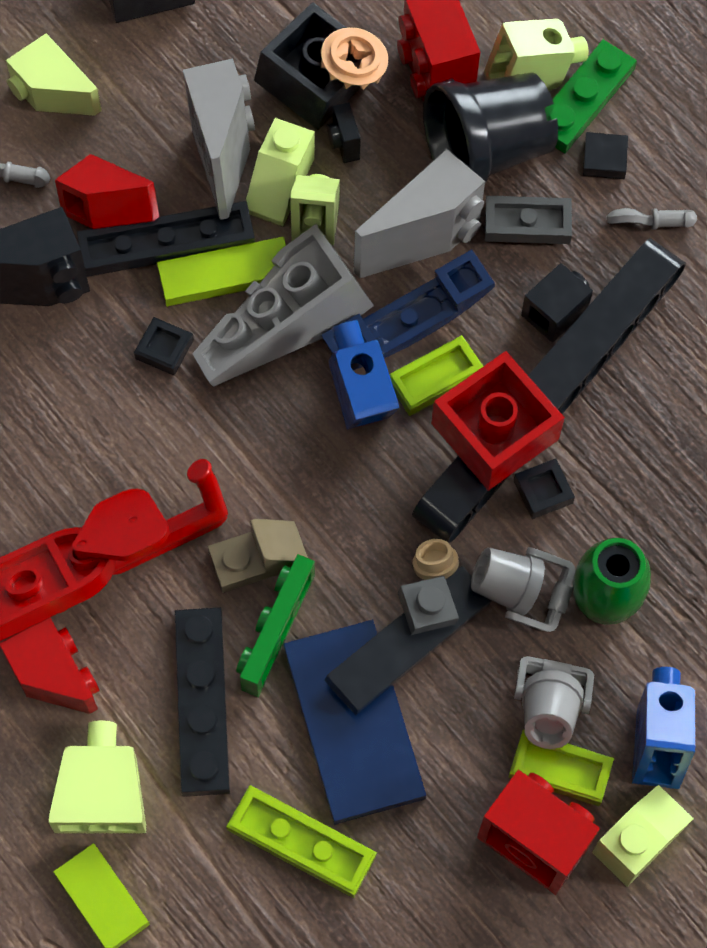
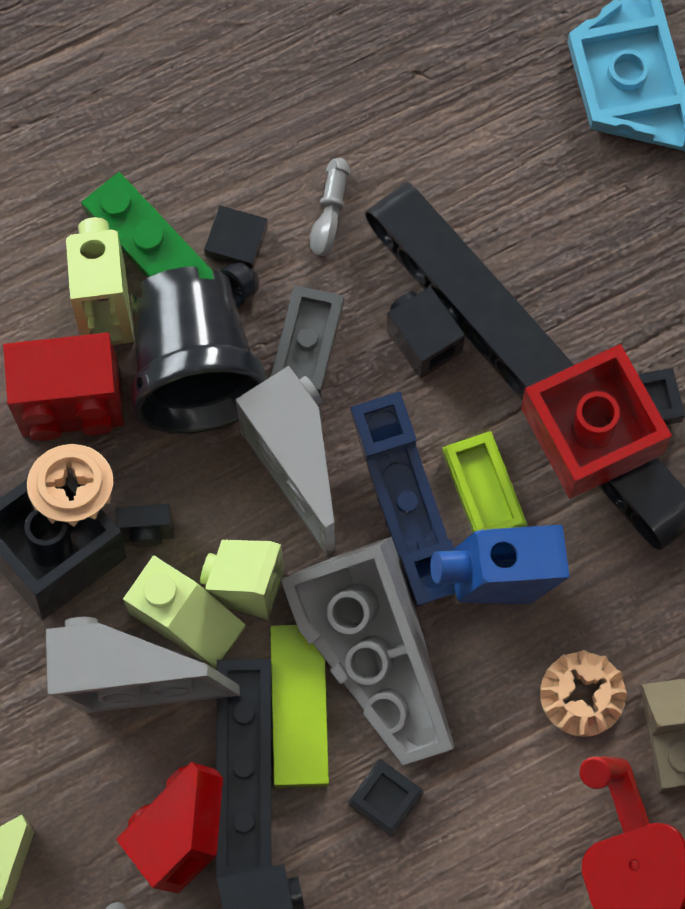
camera: 75 degrees left, 5 degrees up
(274, 495) = (577, 717): none -> light nougat gear
(564, 162) = (244, 277): none -> black hinge

